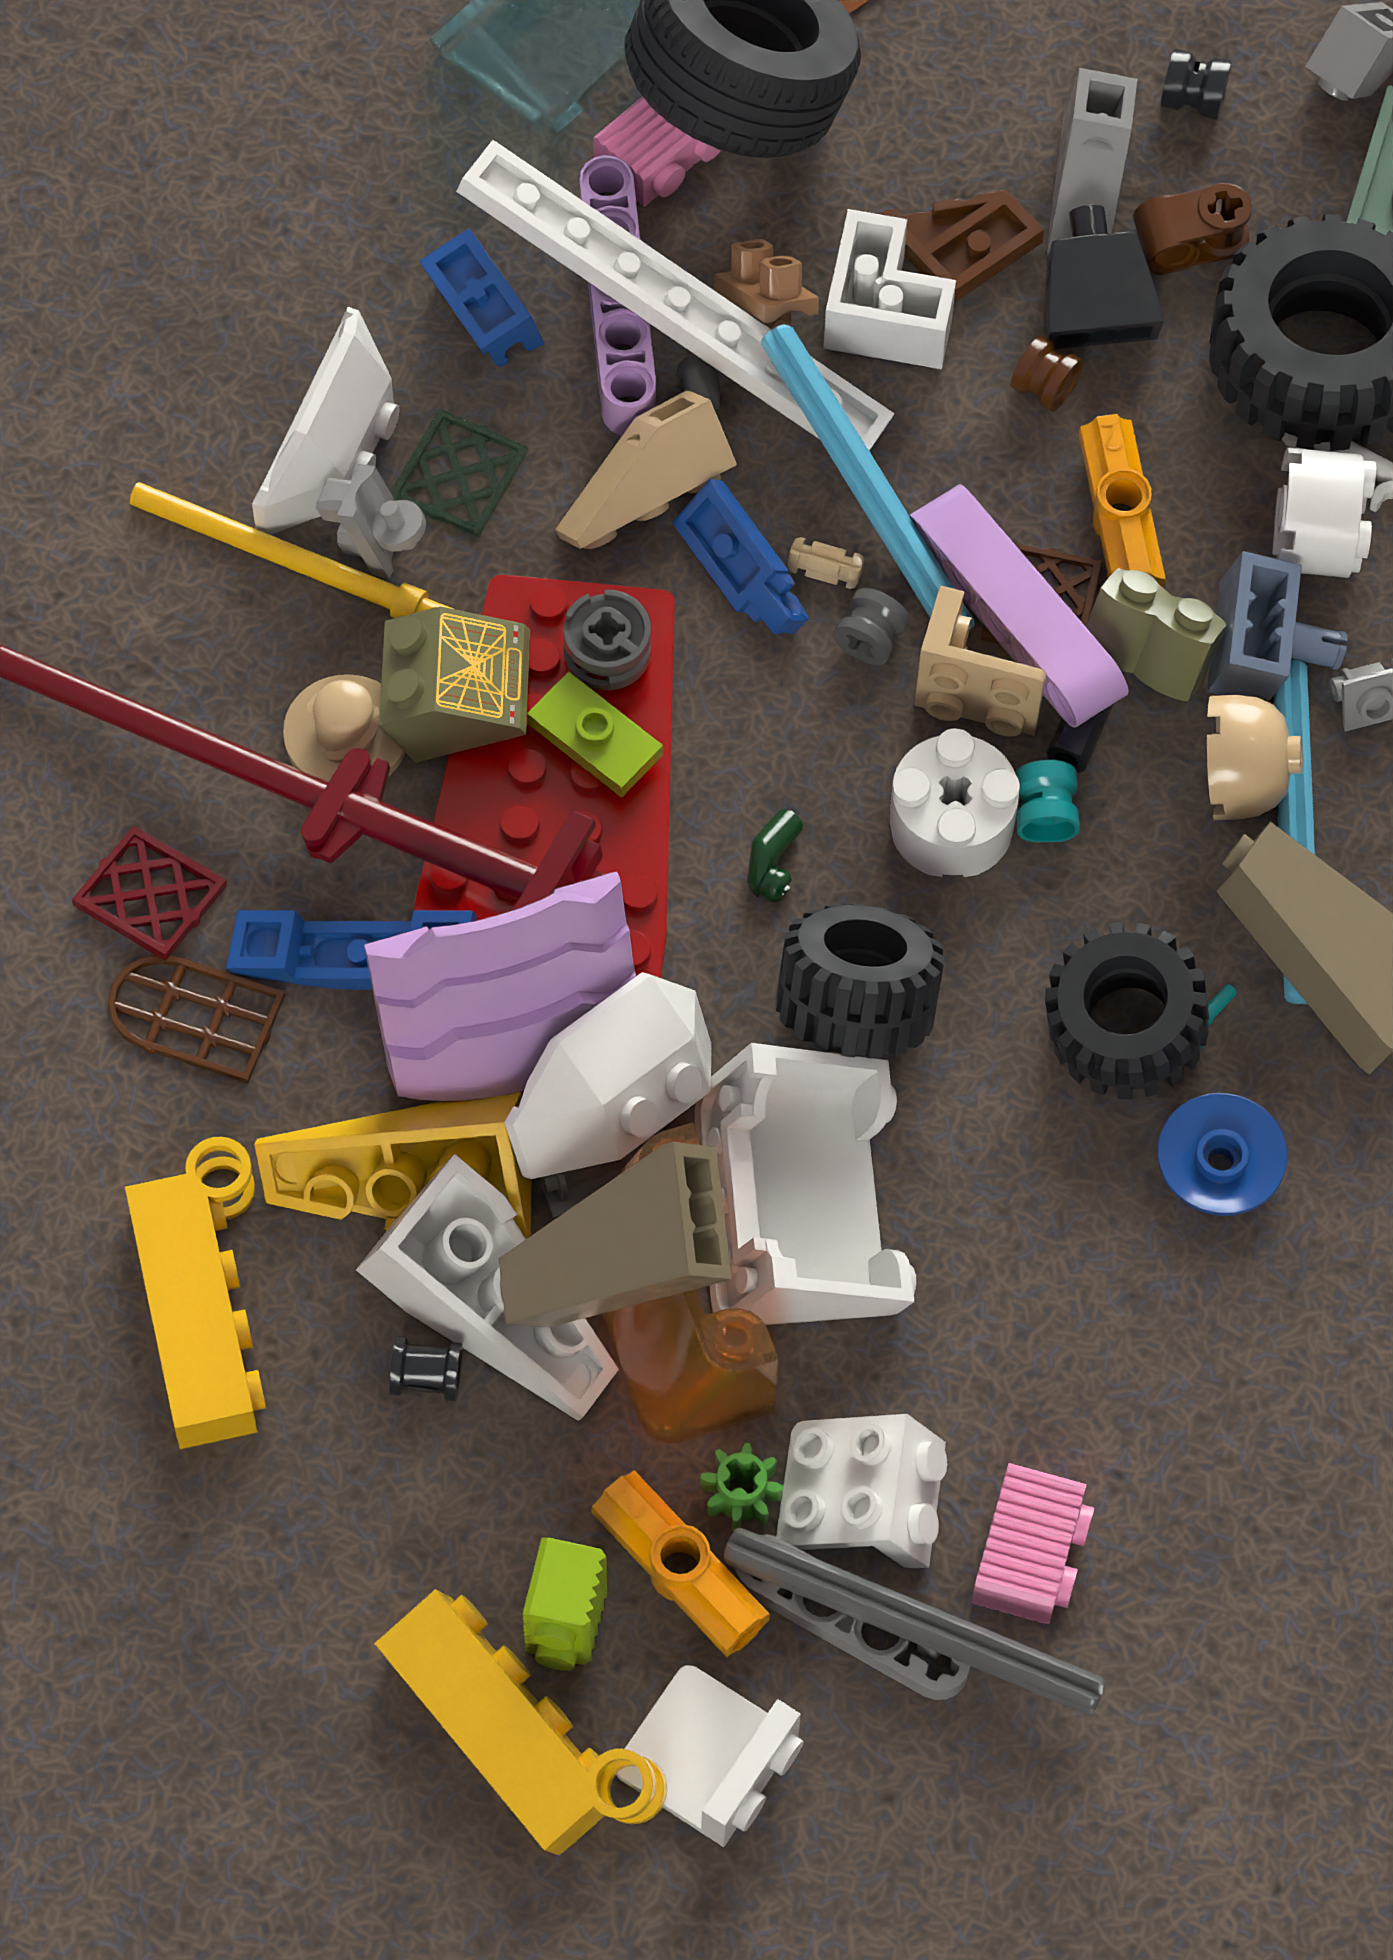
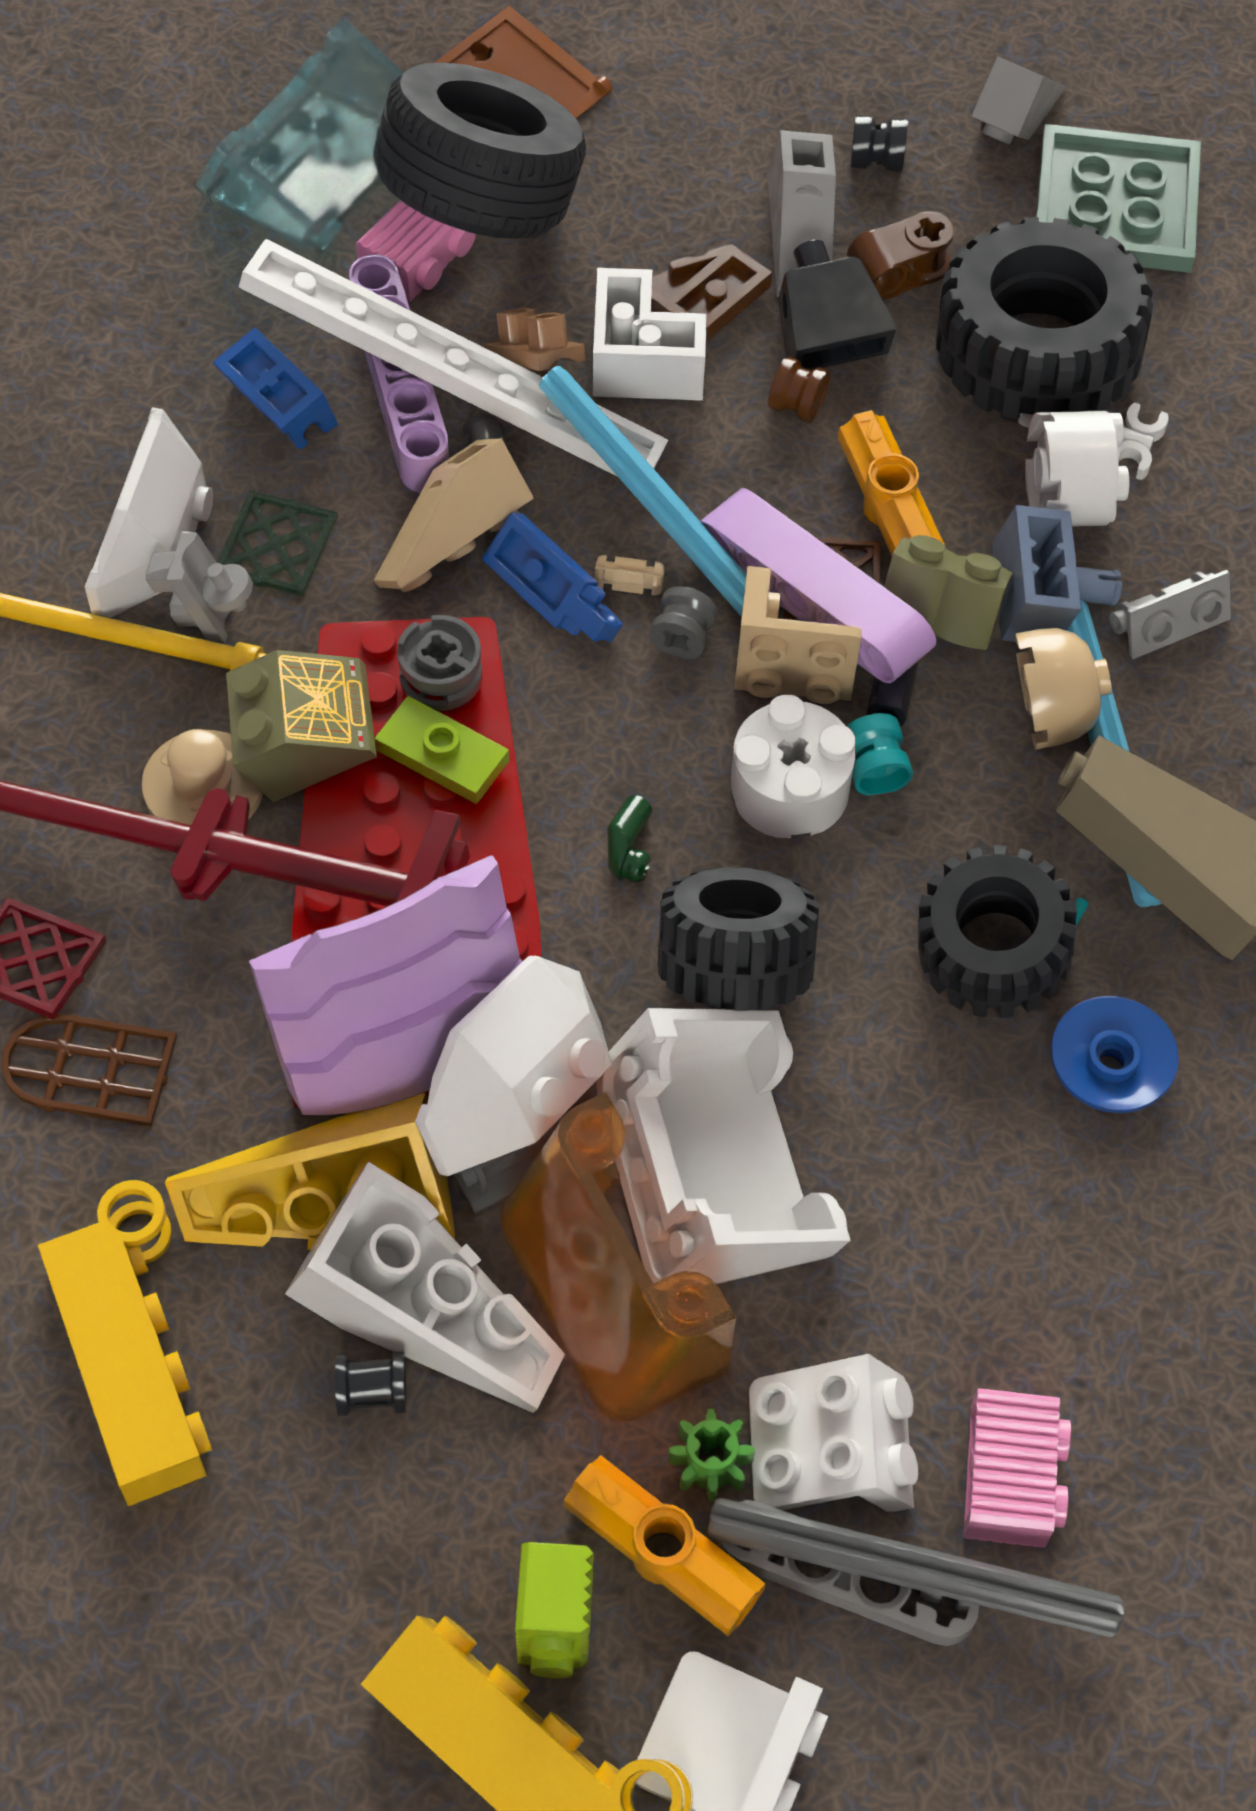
camera: 10 degrees left, 5 degrees down
(317, 953) = (198, 992): blue slope -> none
(625, 1244) = (560, 1223): dark tan slope -> none

